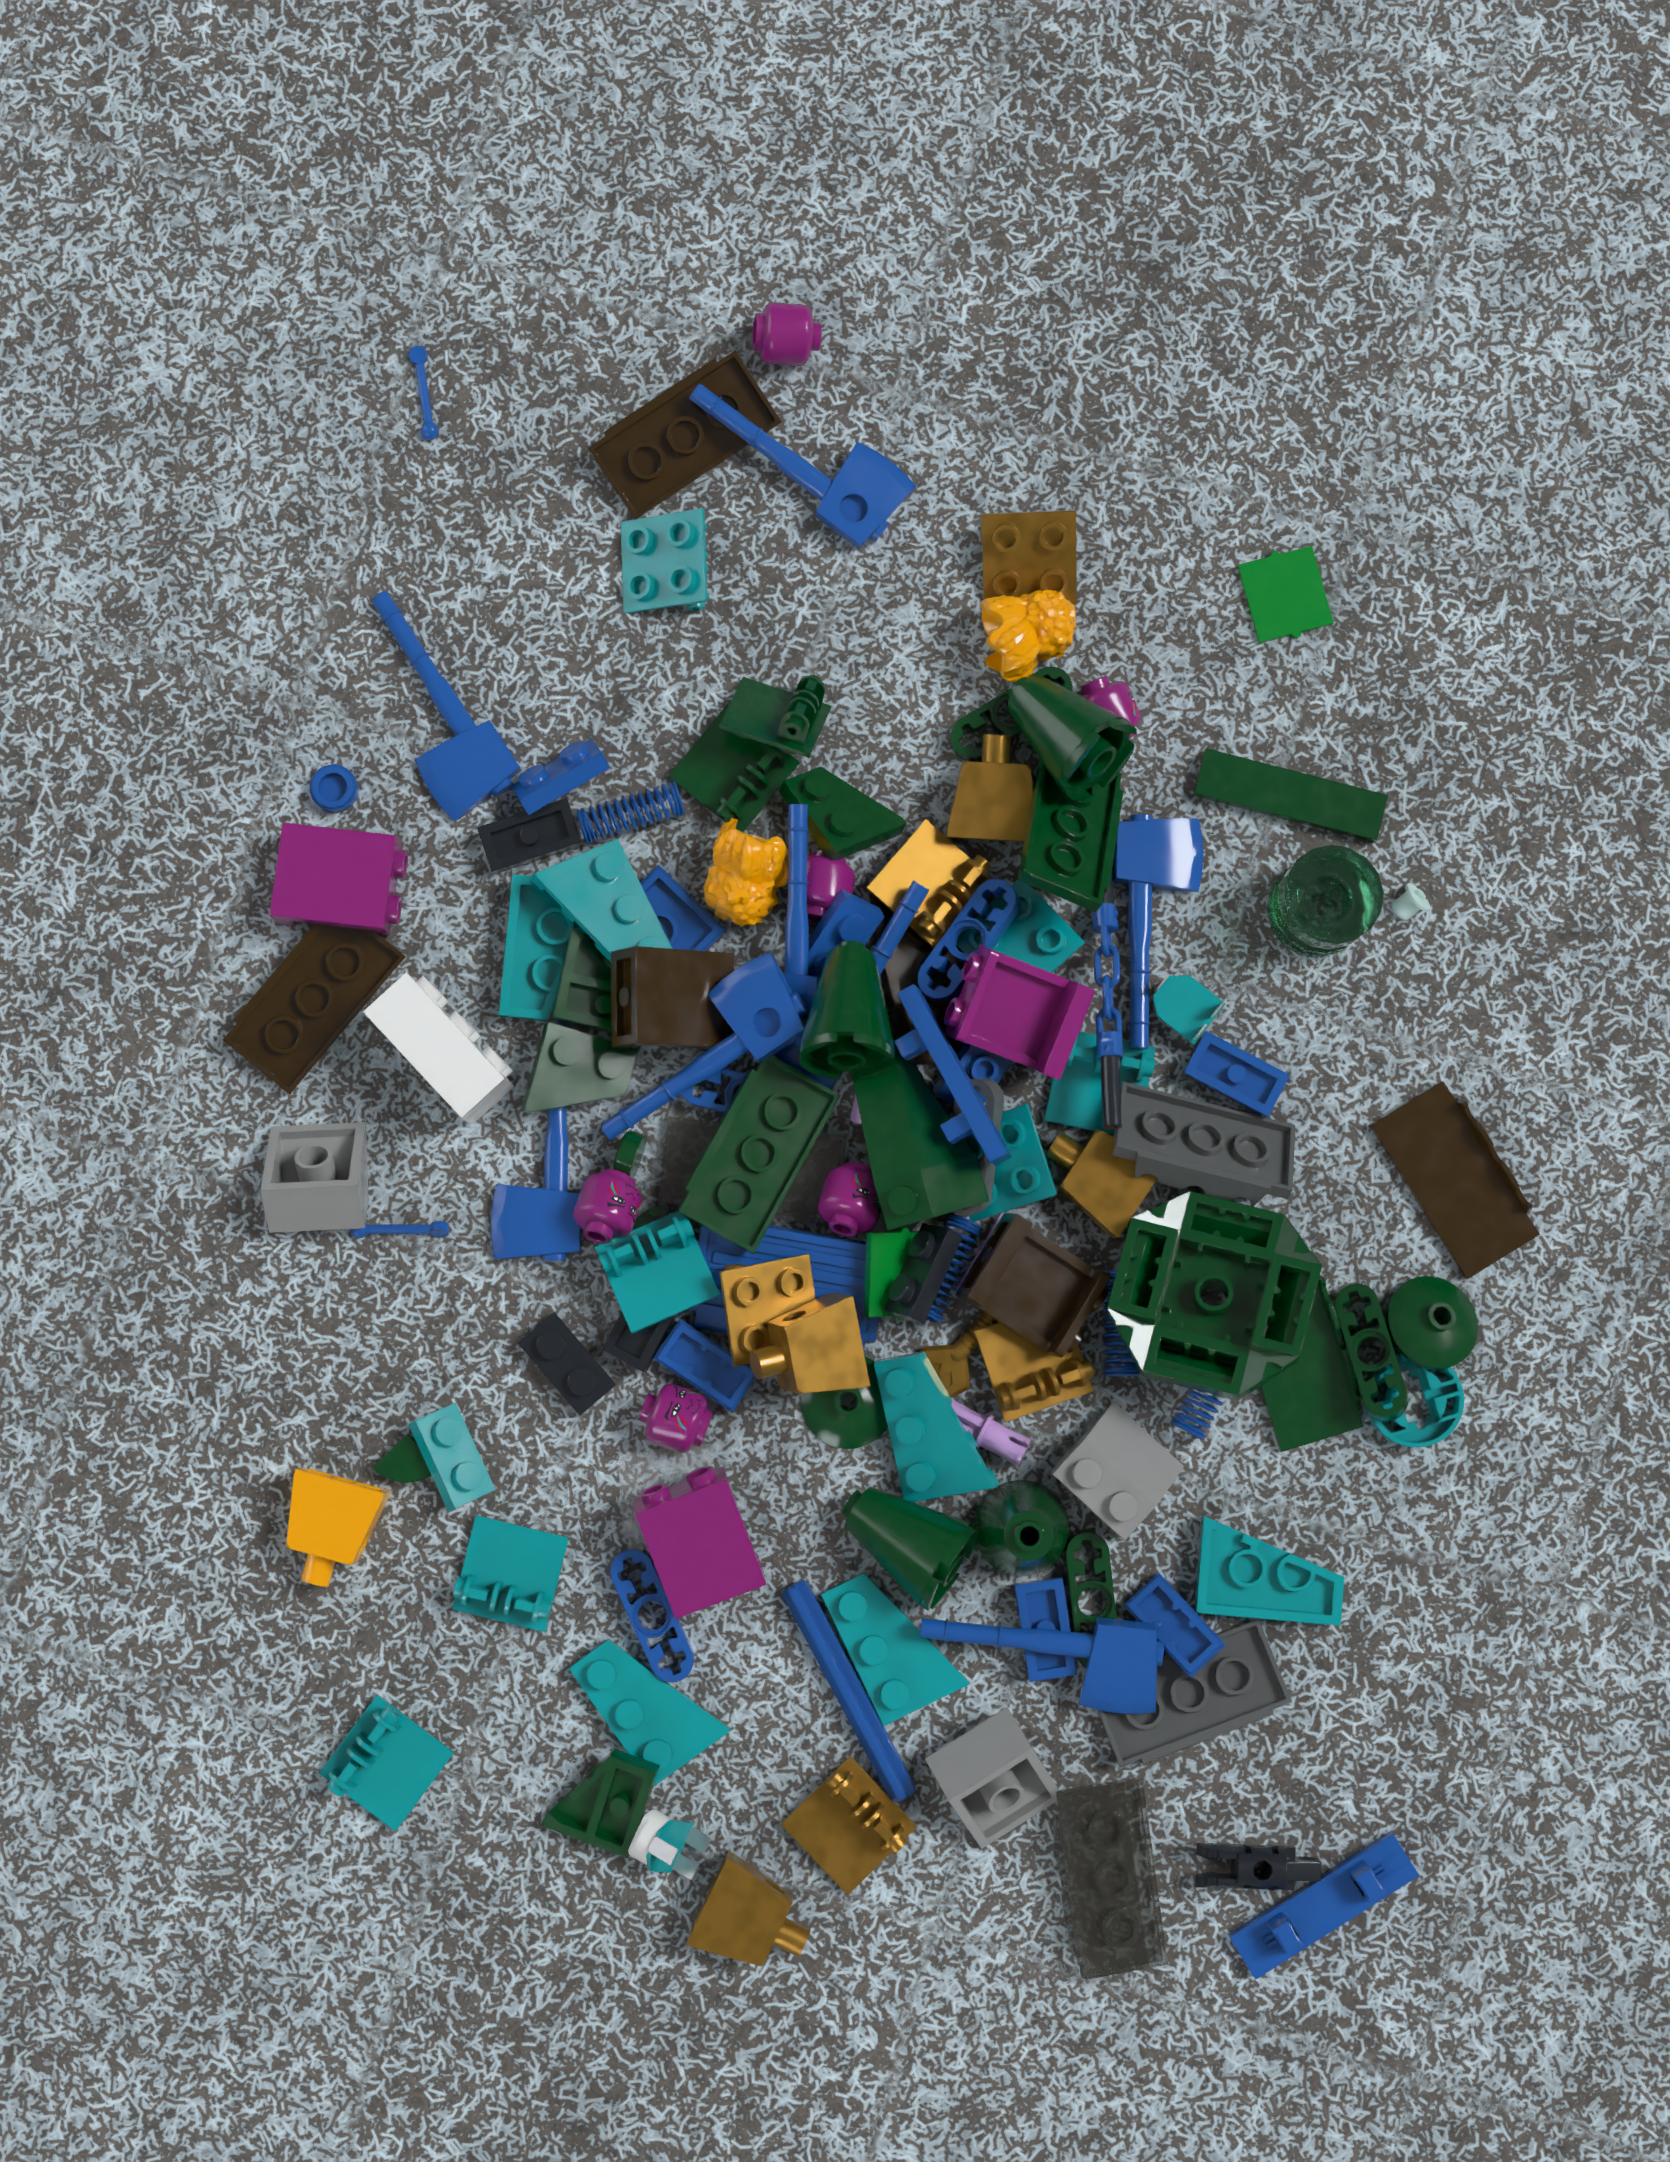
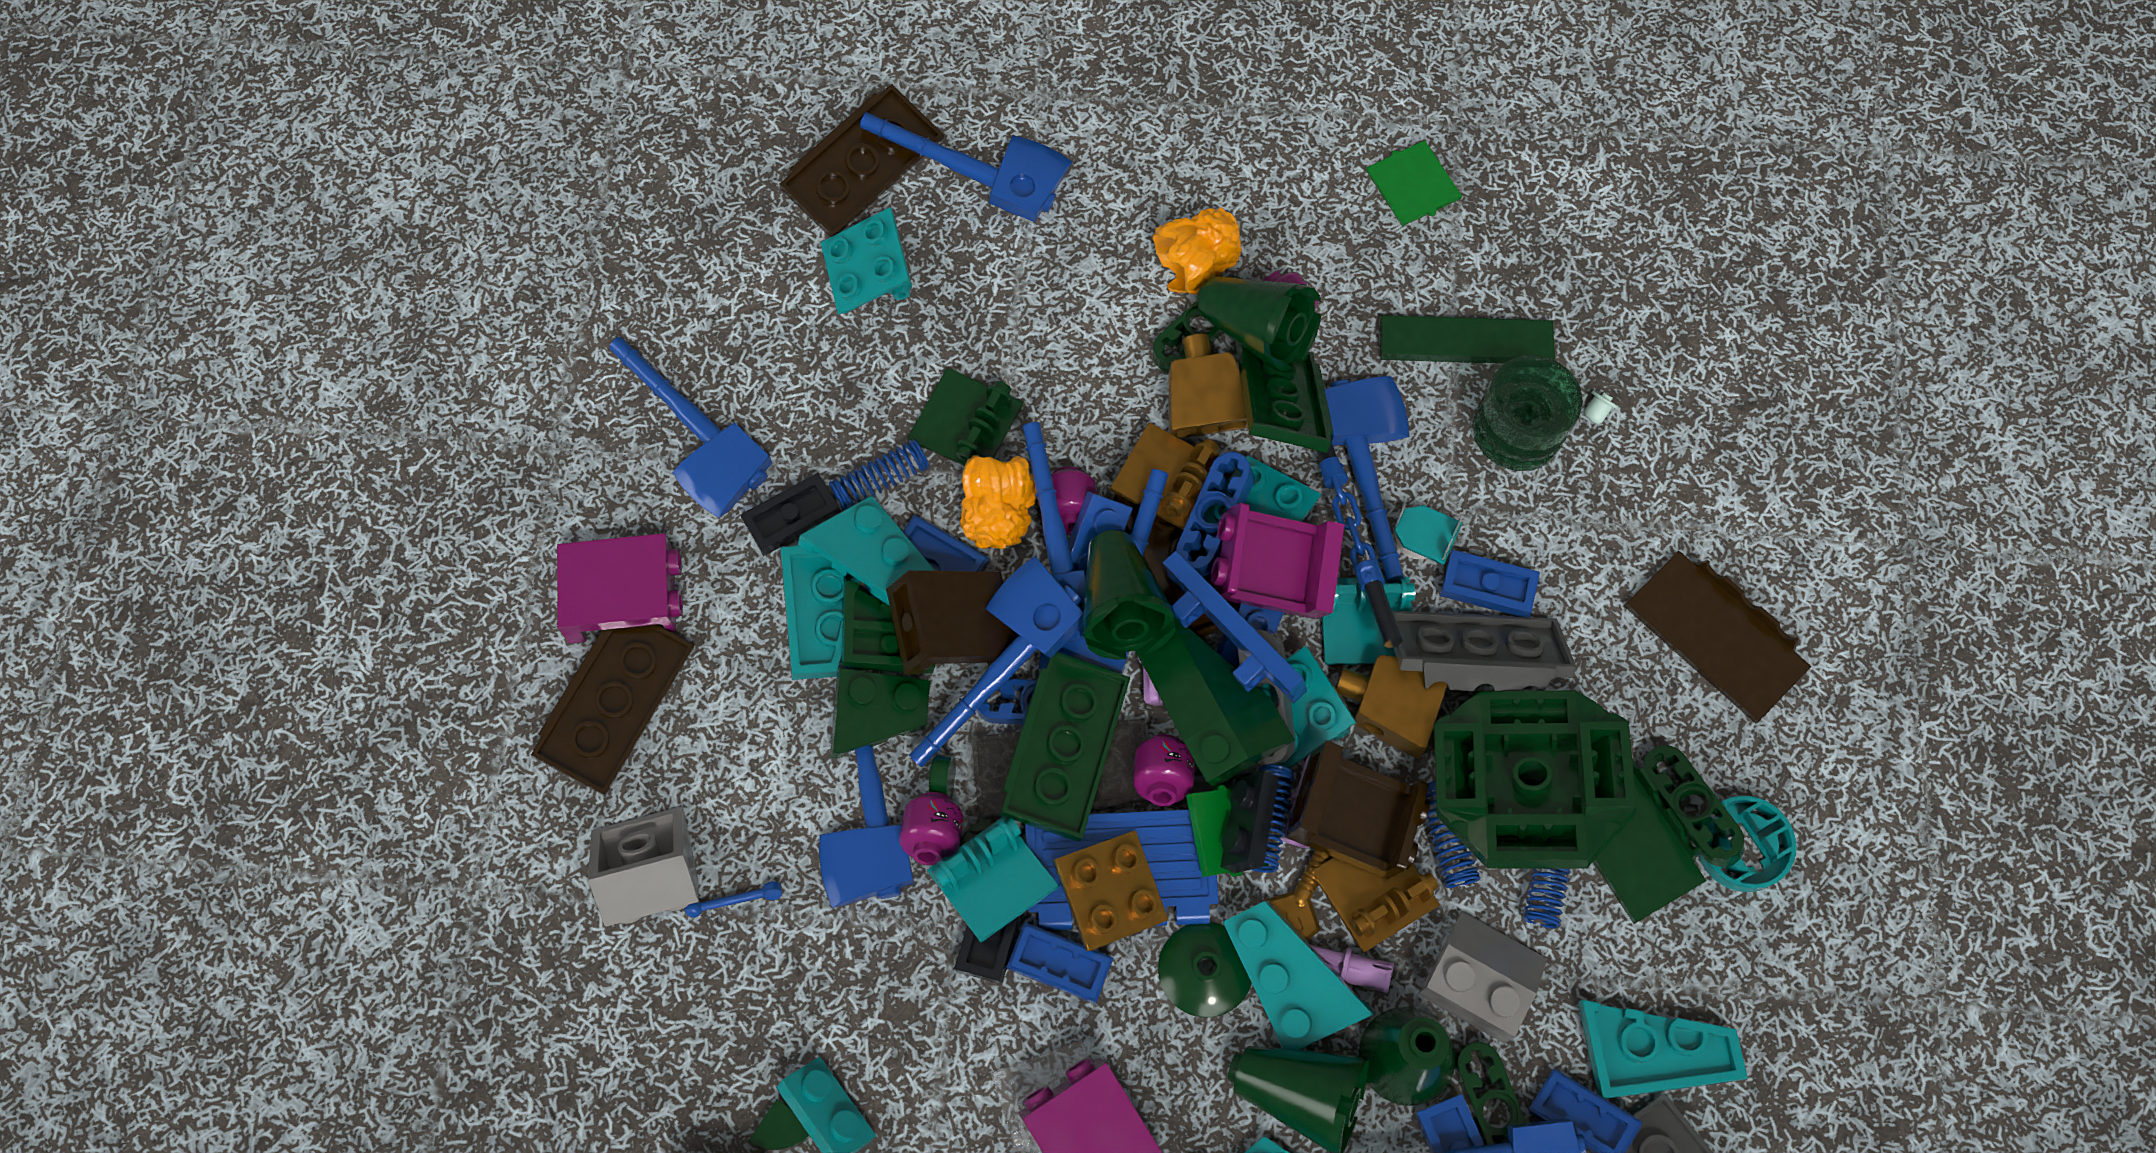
camera: 10 degrees left, 15 degrees down
(334, 788) = (601, 513): blue tile -> none
(418, 357) = (617, 149): blue hinge -> none
(441, 1046) = (741, 711): white brick -> none
(547, 783) = (793, 466): blue plate -> none
(567, 1363) = (923, 993): black plate -> none
(676, 1418) = (1041, 1020): magenta head -> none
(779, 716) = (1011, 365): dark green hinge -> none
(785, 334) = (932, 64): magenta head -> none
(815, 1348) = (1163, 914): pearl gold torso -> none
(839, 814) = (1073, 437): dark green wing -> none
(1029, 553) = (1182, 185): pearl gold hinge -> none
(1416, 1331) = (1740, 768): dark green dish -> none

